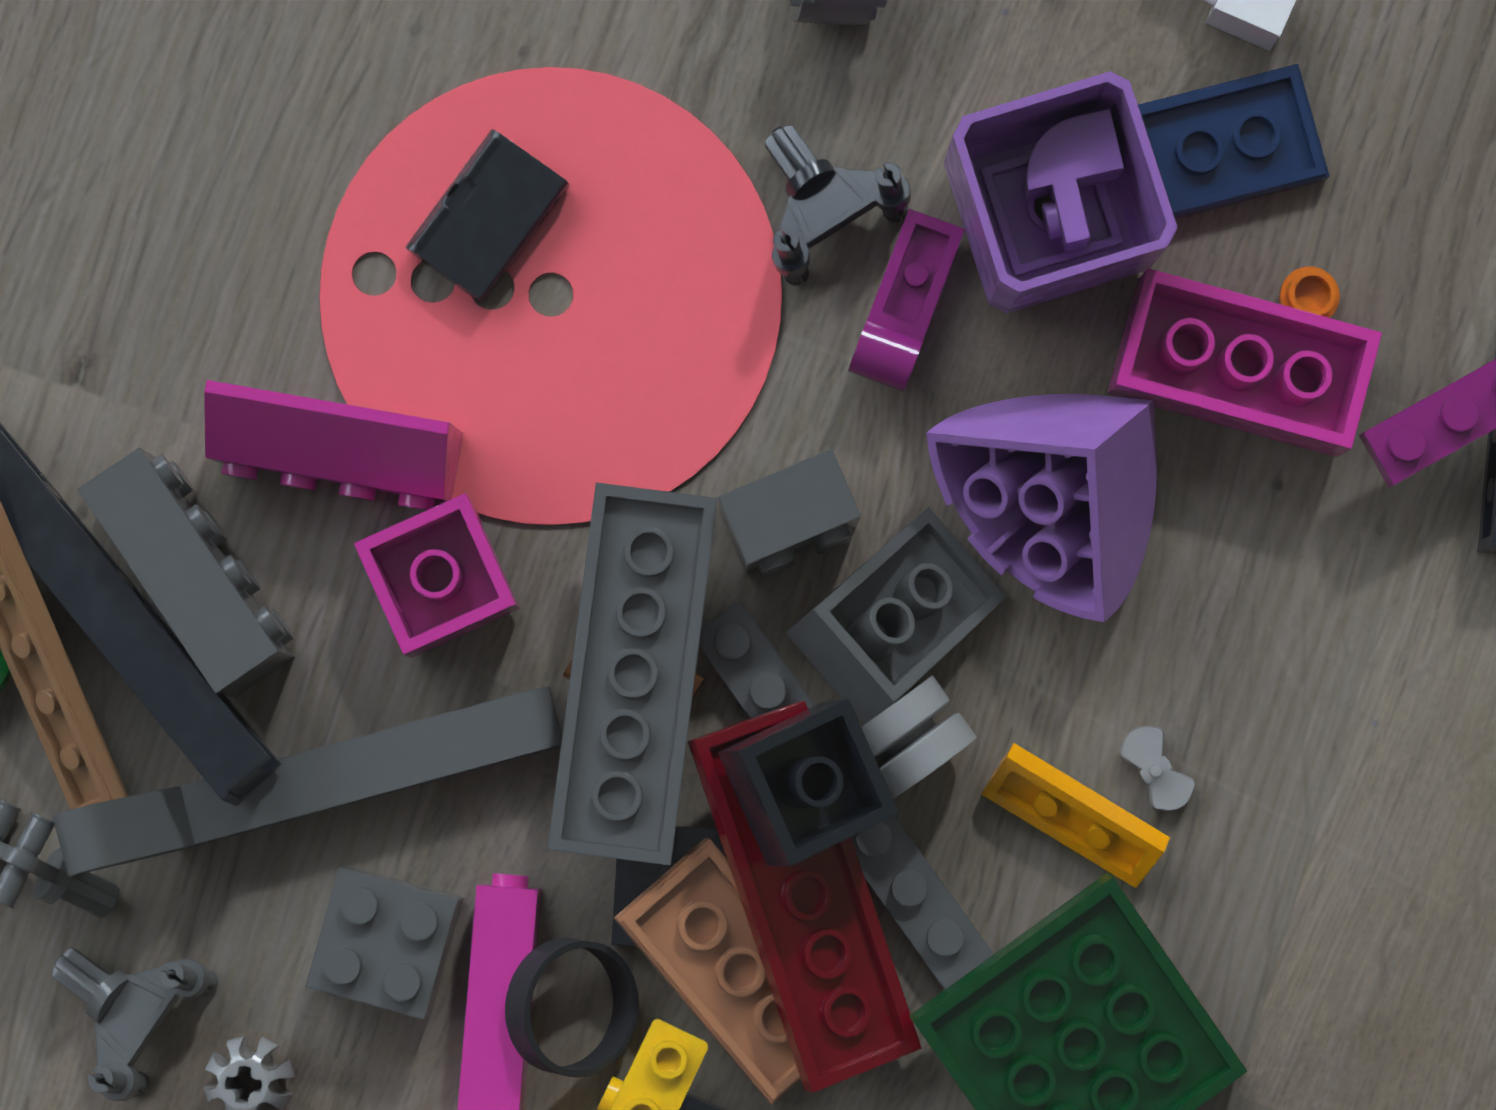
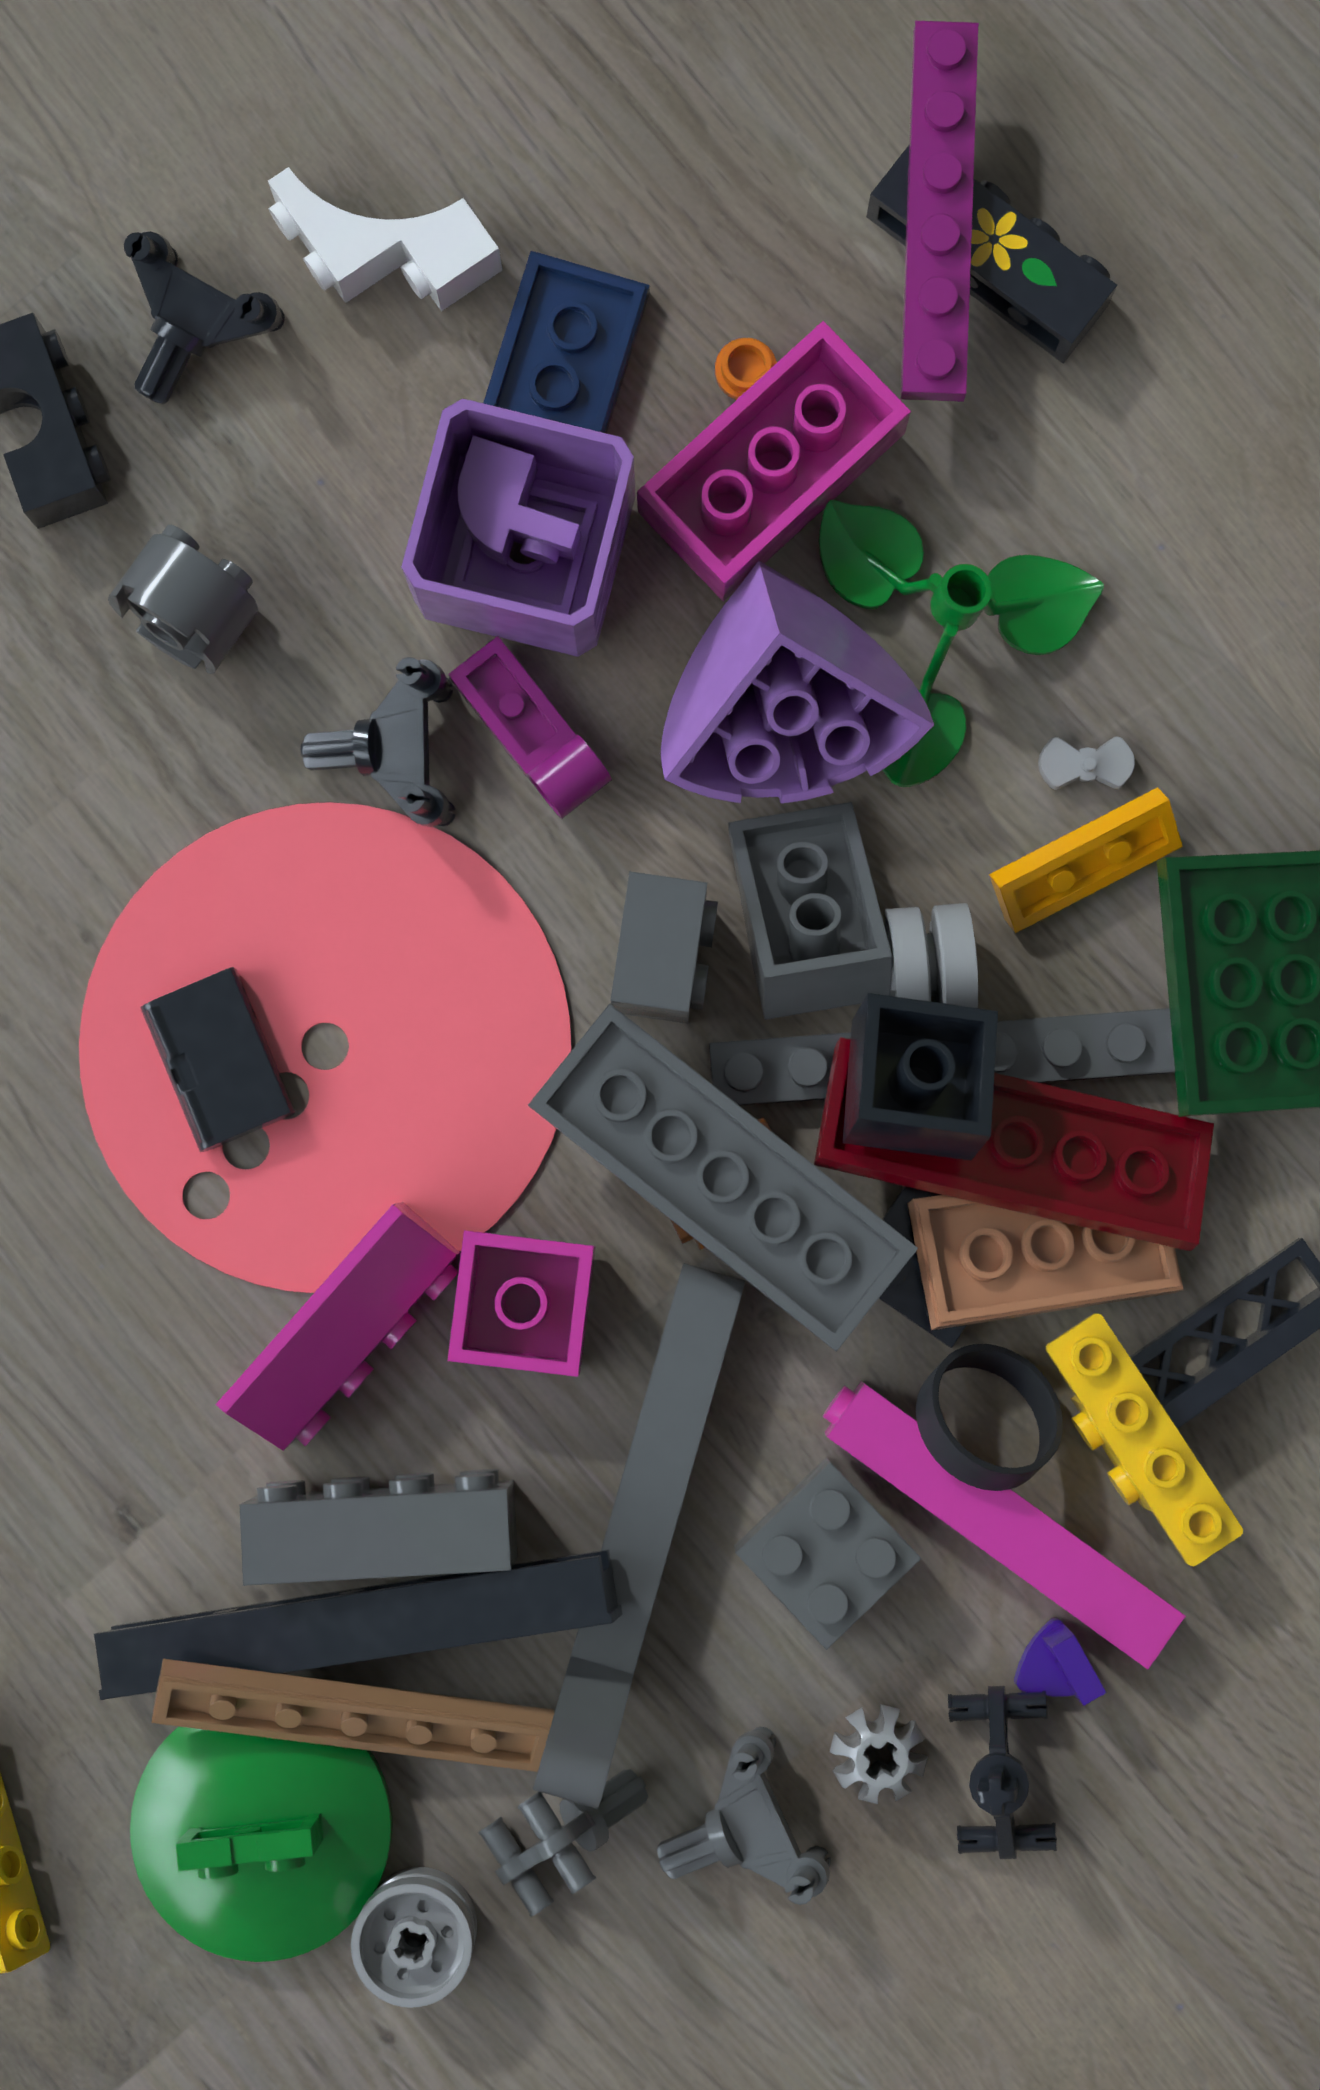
camera: 50 degrees left, 0 degrees up
(1267, 645) = (1036, 597): none -> green plant

